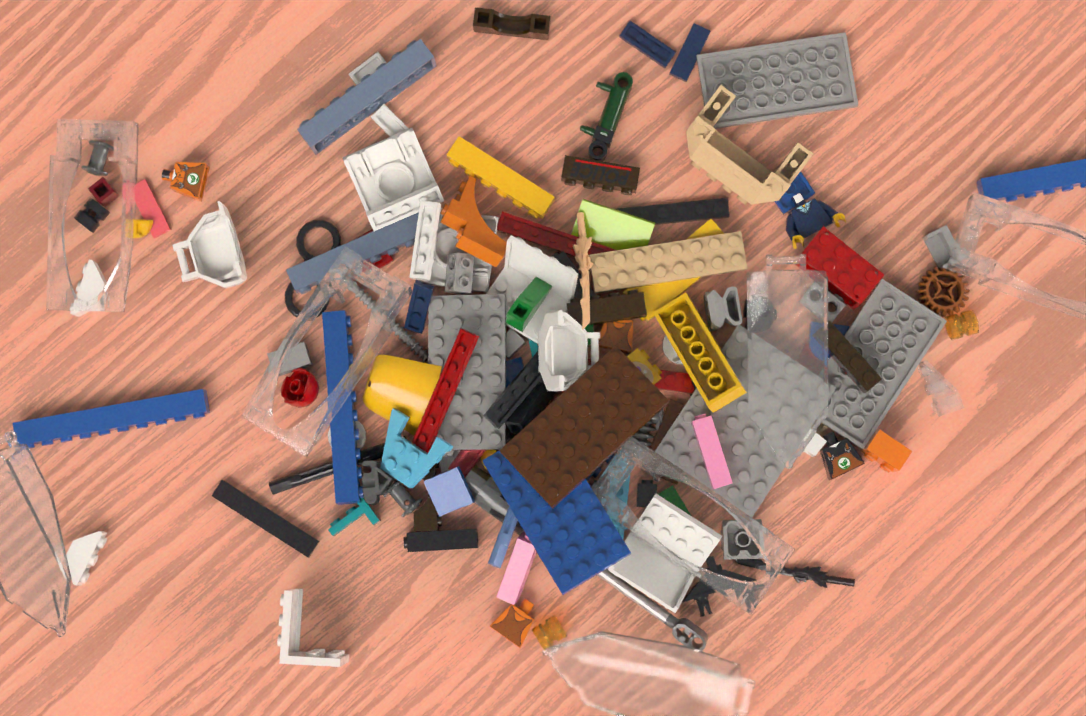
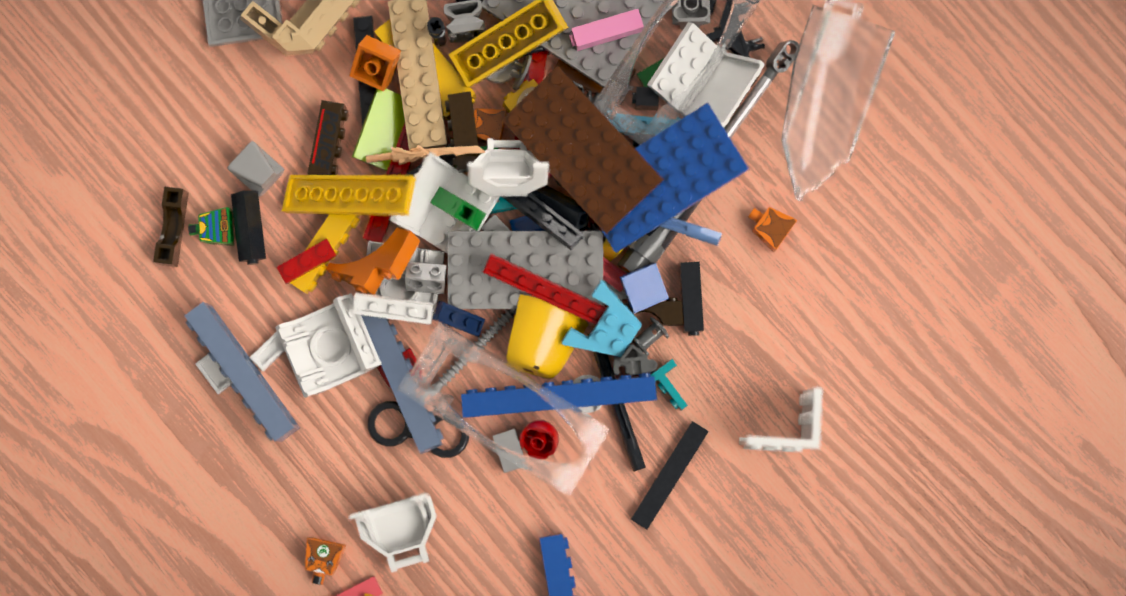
camera: 90 degrees left, 0 degrees up
(476, 156) = (306, 261): none -> red plate
(512, 66) = (214, 227): none -> torso
(512, 99) = (248, 227): none -> black brick
(517, 570) = (720, 220): bright pink brick -> none
(539, 195) = (349, 194): none -> yellow plate
(549, 632) = (781, 192): clear yellow wheel -> none
(570, 105) = (256, 168): none -> light grey piece
(610, 117) = (284, 135): dark green piece -> none
(647, 44) = (196, 94): dark blue tile -> none
(672, 368) = (520, 75): none -> light grey piece
(675, 219) = (375, 63): none -> orange brick
(687, 57) = (203, 52): dark blue tile -> none
(708, 284) = (437, 30): none -> black pin

